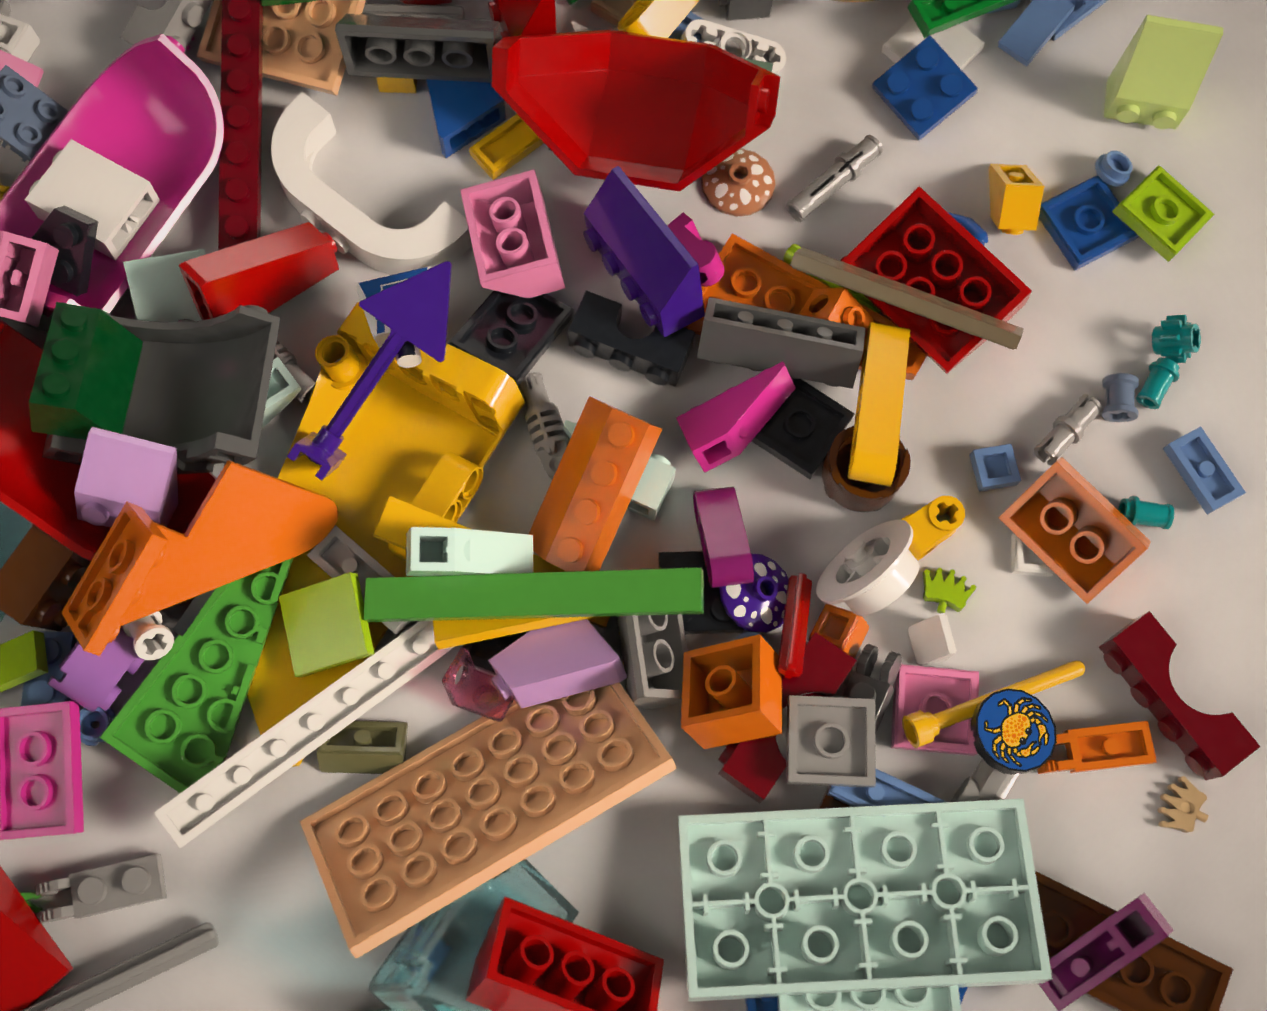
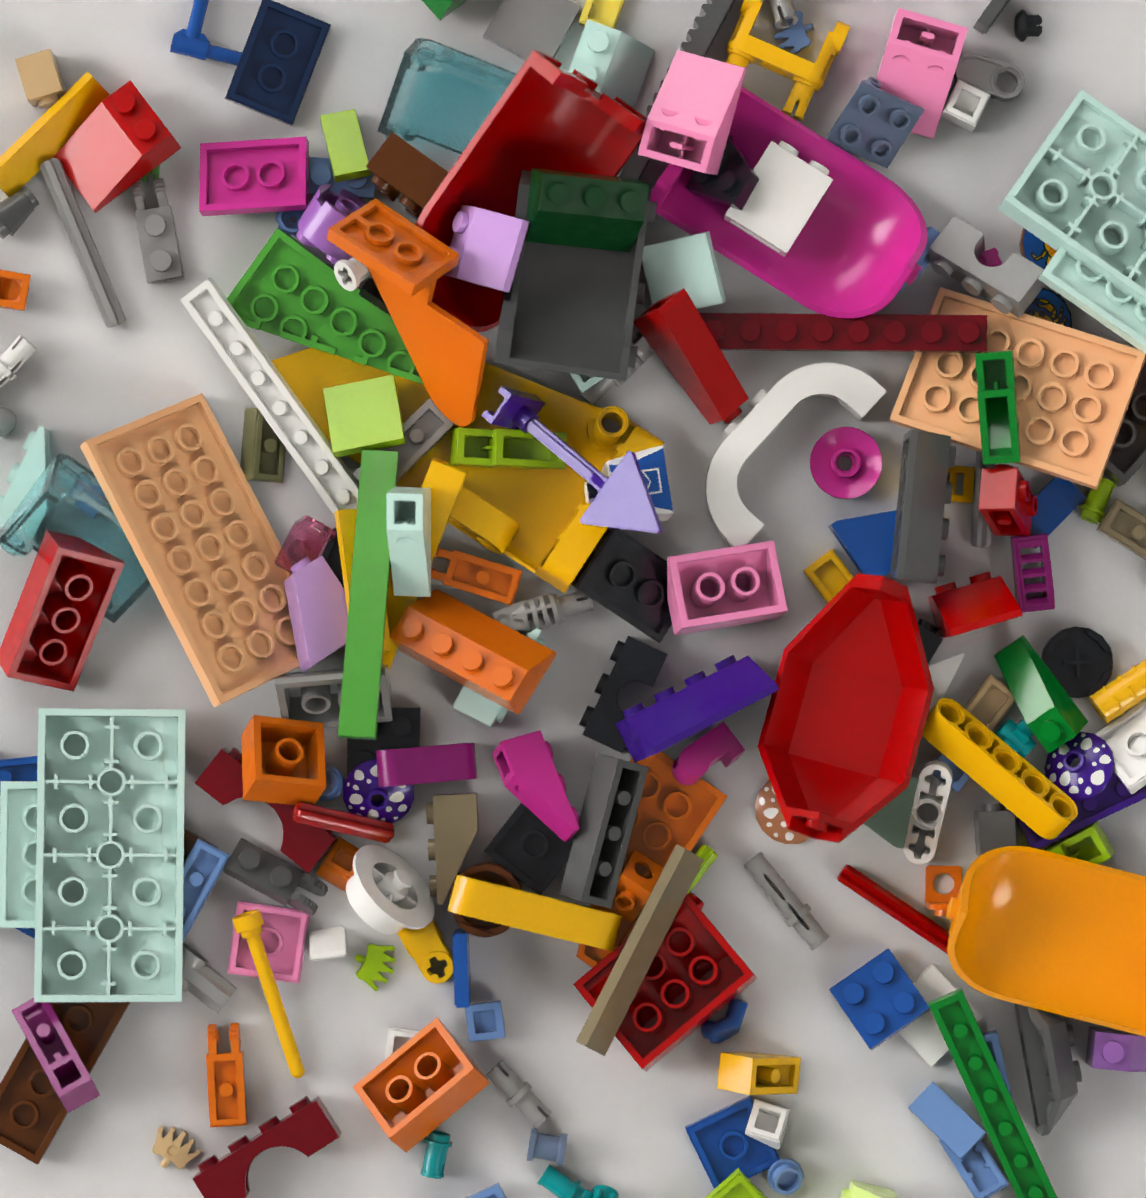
camera: 95 degrees right, 15 degrees up
(364, 471) = (501, 449): none -> lime slope
(375, 122) = (861, 451): none -> dark pink dish
(509, 492) = (478, 576): none -> orange hinge
(795, 507) = (454, 831): none -> dark tan slope
(818, 35) = (937, 901): none -> orange bracket
(831, 741) = (237, 842): light grey plate -> none
(832, 77) = (894, 907): none -> red axle
(961, 482) = (461, 968): none -> blue tile
(1013, 731) = (239, 1001): tile -> none
(1064, 183) = (768, 1123): none -> white slope

